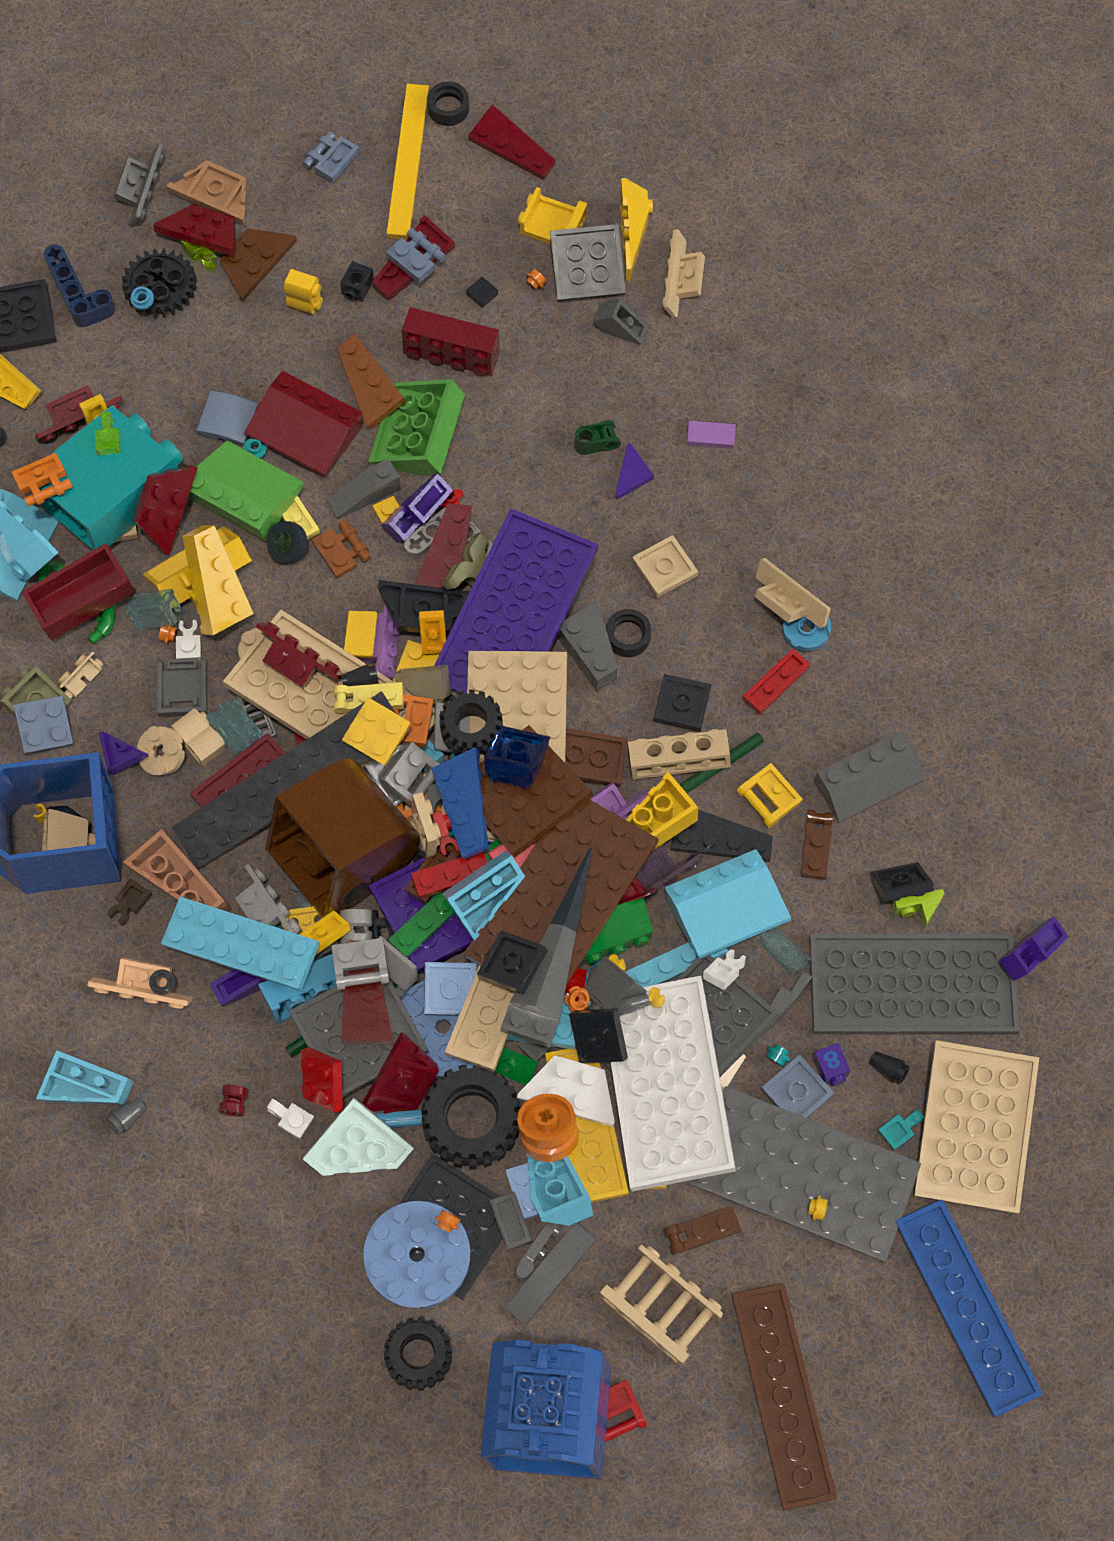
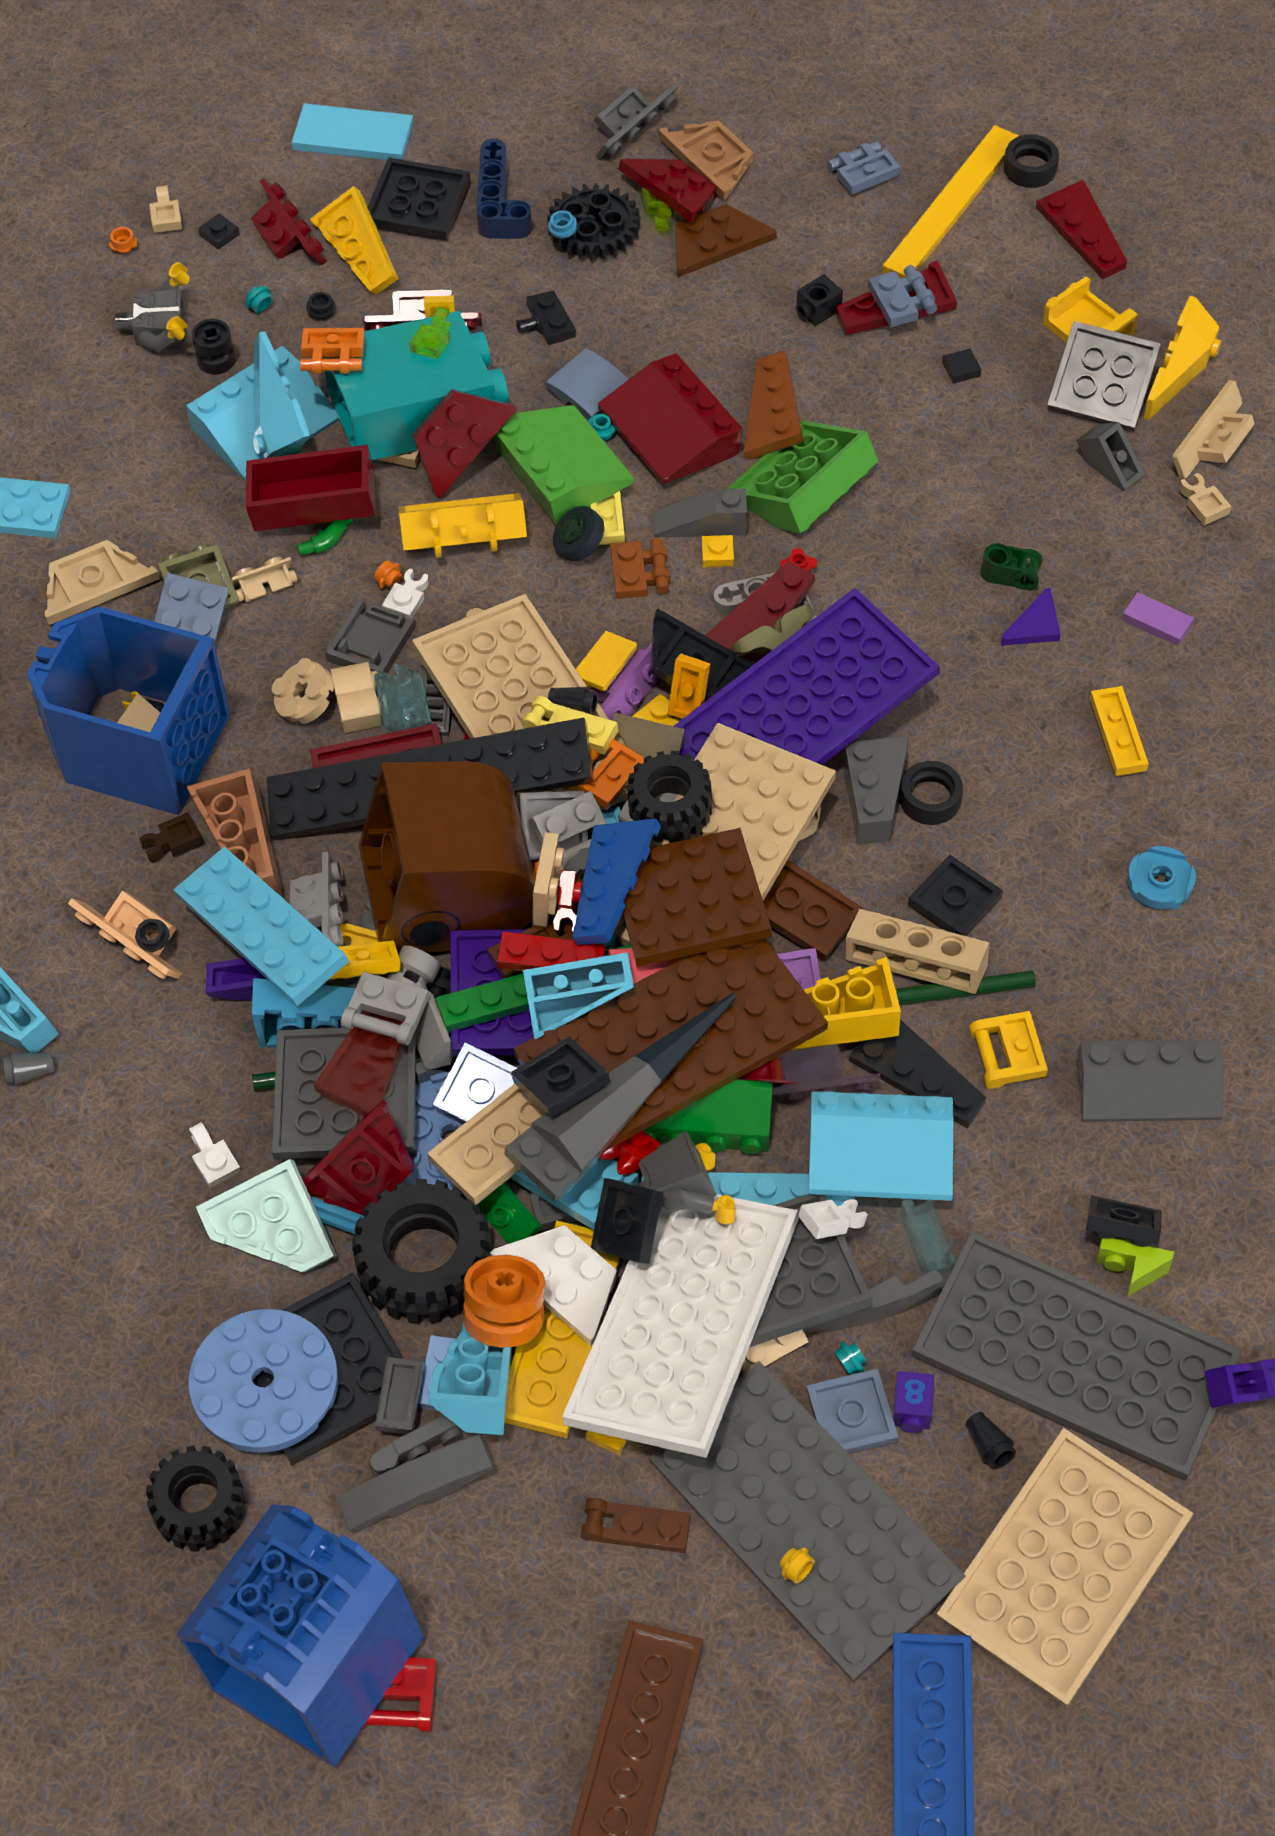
camera: 30 degrees right, 10 degrees down
(119, 754) = (256, 678): dark purple tile -> none
(153, 609) = (381, 540): clear light blue hinge -> none
(167, 376) = (547, 318): none -> black plate
(215, 583) = (466, 533): yellow wedge -> none
(233, 1100) = (156, 1105): dark red wheel -> none
(292, 659) = (504, 648): dark red bracket -> none
(303, 292) = (747, 284): yellow brick -> none
(322, 1079) = (267, 1122): red plate -> none
(376, 731) = (552, 759): yellow plate -> none
(417, 508) = (751, 555): dark purple slope -> none
(447, 1221) = (317, 1352): orange plate -> none
(450, 342) = (891, 397): dark red piece -> none
(515, 756) = (697, 848): clear blue slope -> none
(535, 279) = (1033, 375): orange plate -> none
(583, 1000) = (627, 1156): orange plate -> none
(636, 1314) = (508, 1618): tan fence -> none
(665, 566) = (1018, 738): tan plate -> none
(700, 331) = (1204, 502): none -> tan plate
(727, 531) = (1119, 731): none -> yellow plate
(776, 681) = (1088, 922): red plate -> none
(788, 597) = (1153, 829): tan bracket -> none
(816, 845) = (1038, 1134): reddish brown plate -> none
(898, 1131) = (958, 1524): teal plate -> none

